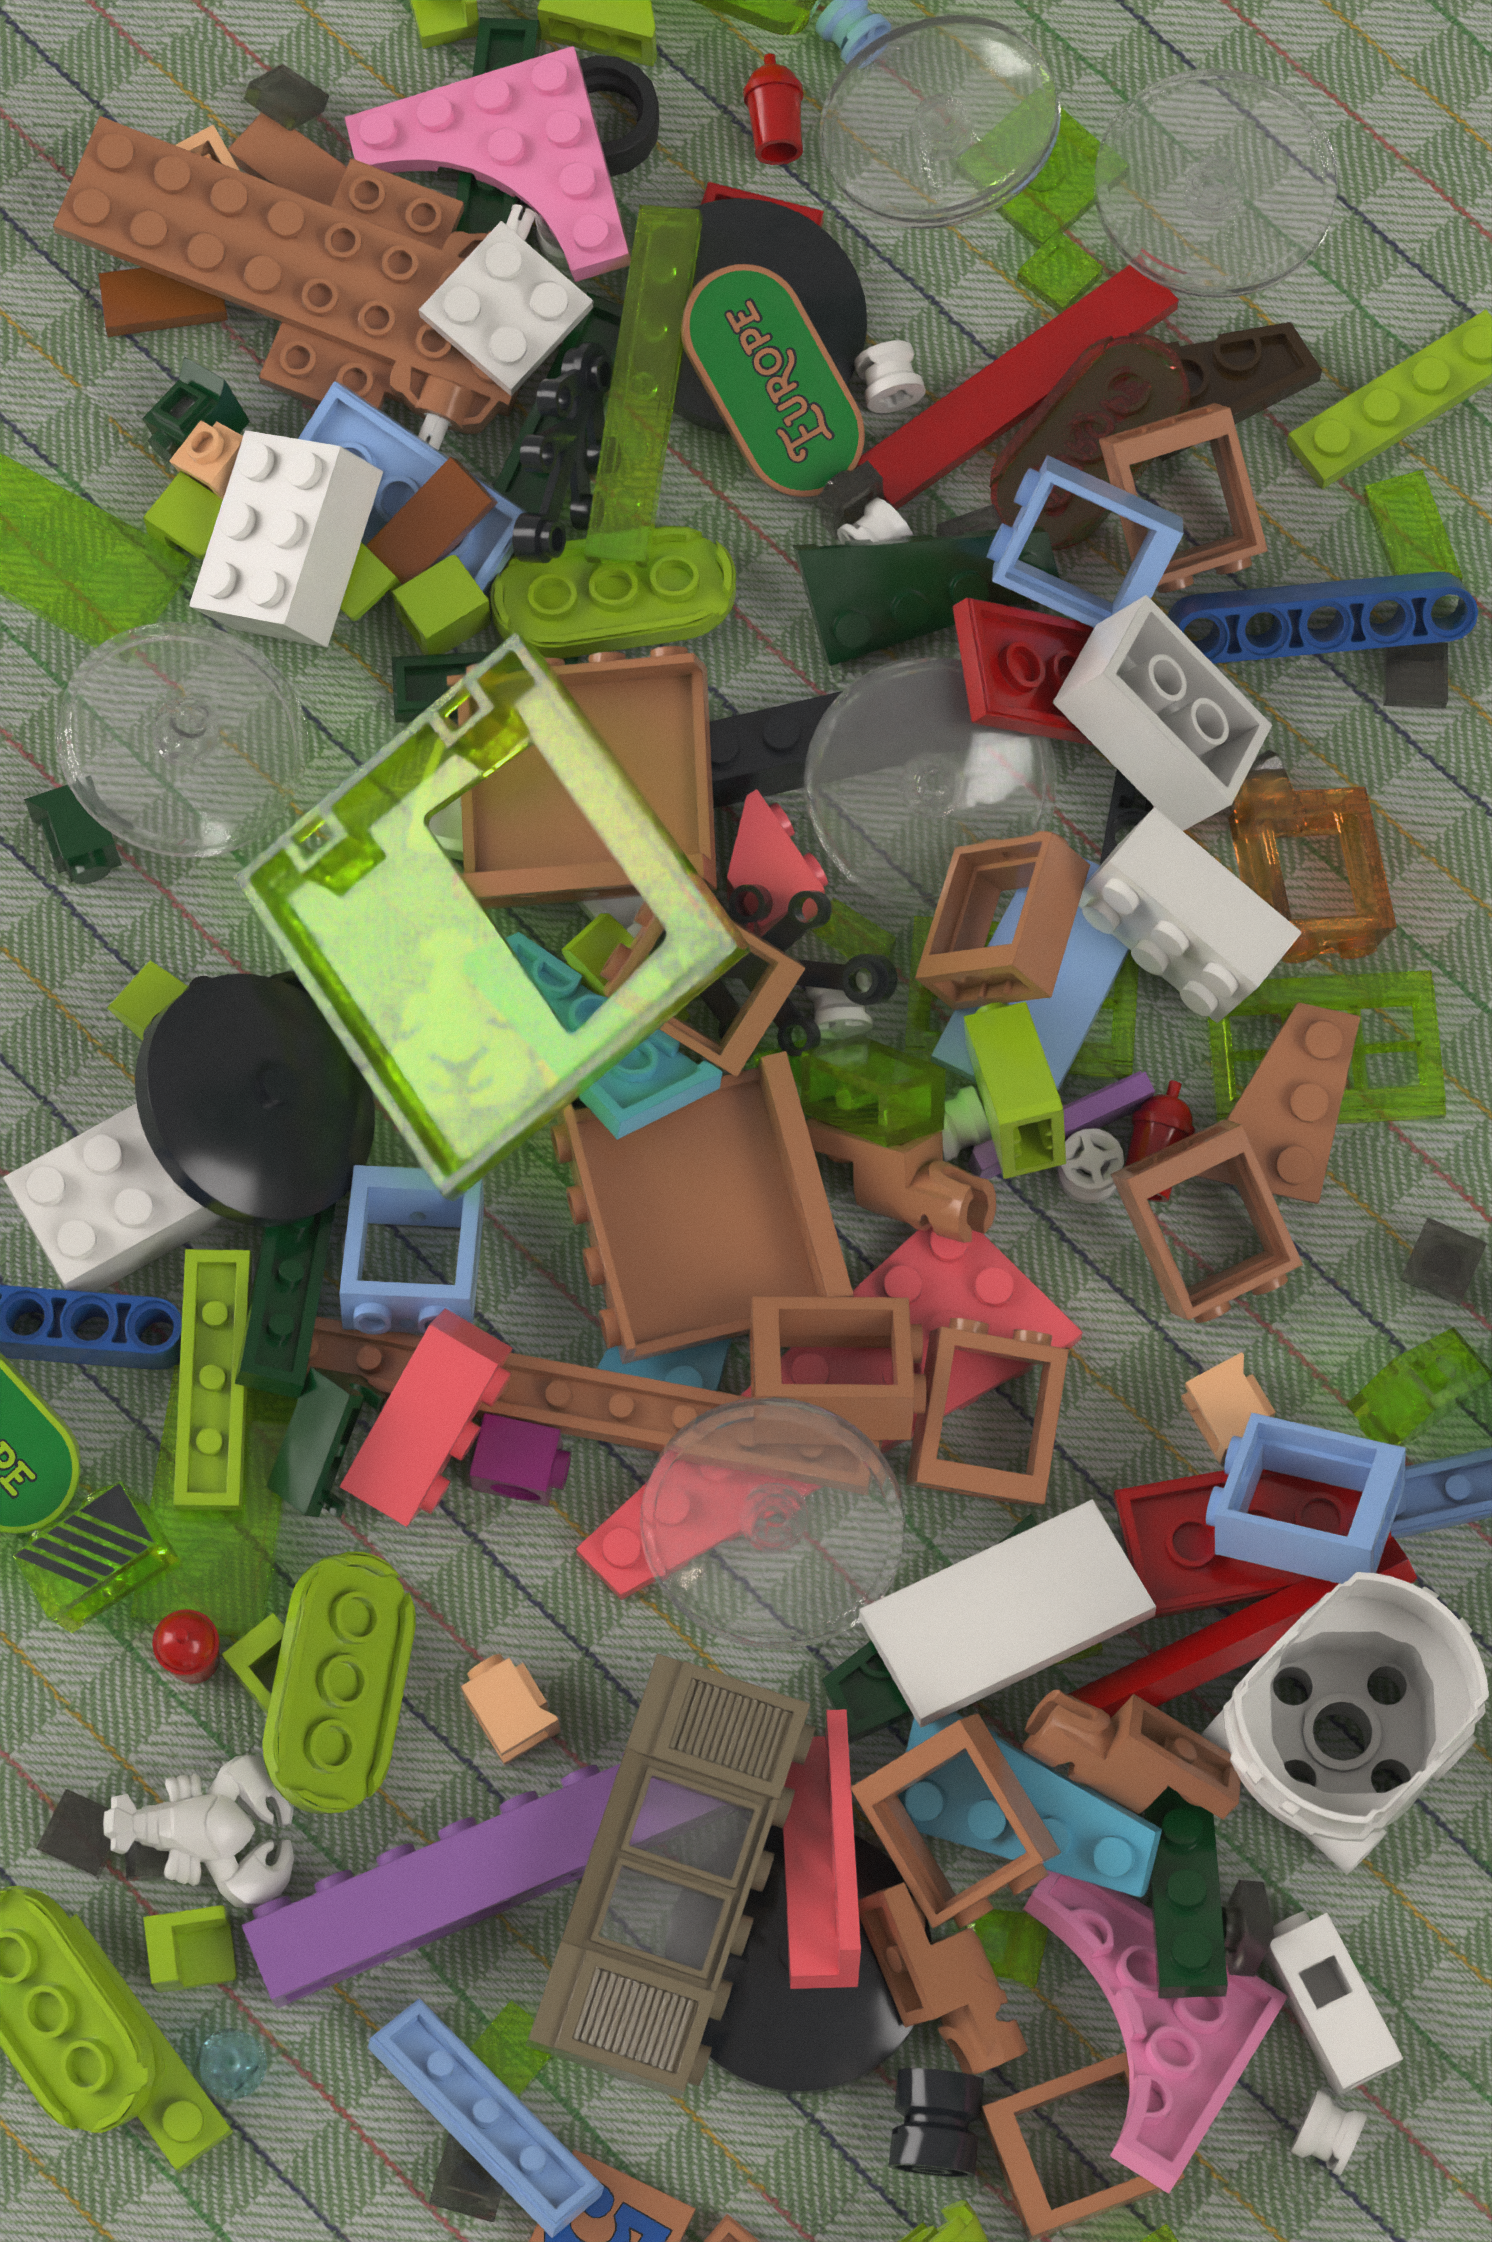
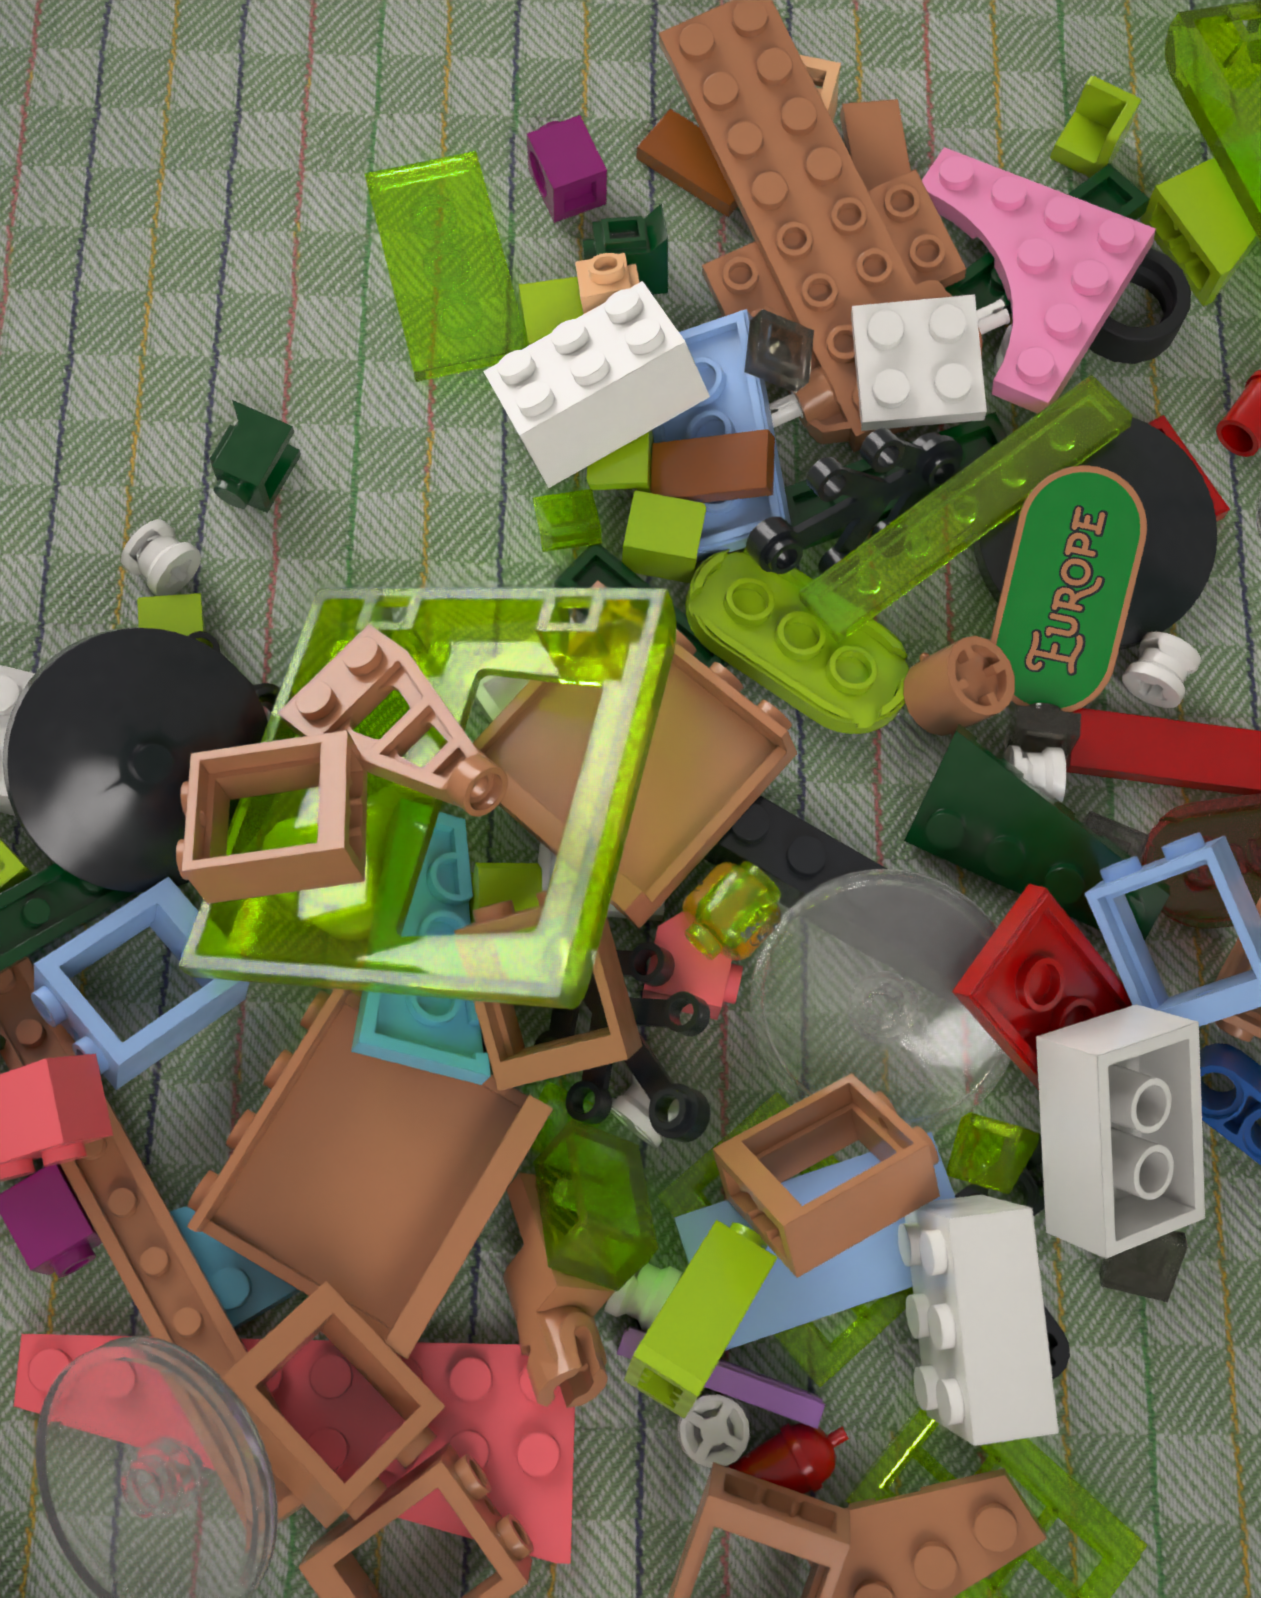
camera: 40 degrees right, 0 degrees up
(71, 393) = (567, 168): none -> magenta brick
(97, 965) = (160, 558): none -> white wheel
(182, 739) = (384, 460): clear dish -> none
(286, 97) = (918, 103): clear smoke tile -> none
(349, 906) = (357, 684): none -> nougat plate
(356, 661) = (567, 520): none -> clear neon green tile
(368, 1008) = (271, 768): none -> nougat window
(396, 391) = (779, 351): none -> clear smoke plate
(763, 519) = (959, 685): none -> nougat piece
(769, 815) = (732, 911): none -> clear neon green head
(854, 933) = (719, 1062): clear neon green piece -> none
(1094, 816) = (990, 1152): none -> clear neon green slope
(1317, 813) = (1076, 1338): clear orange window -> none

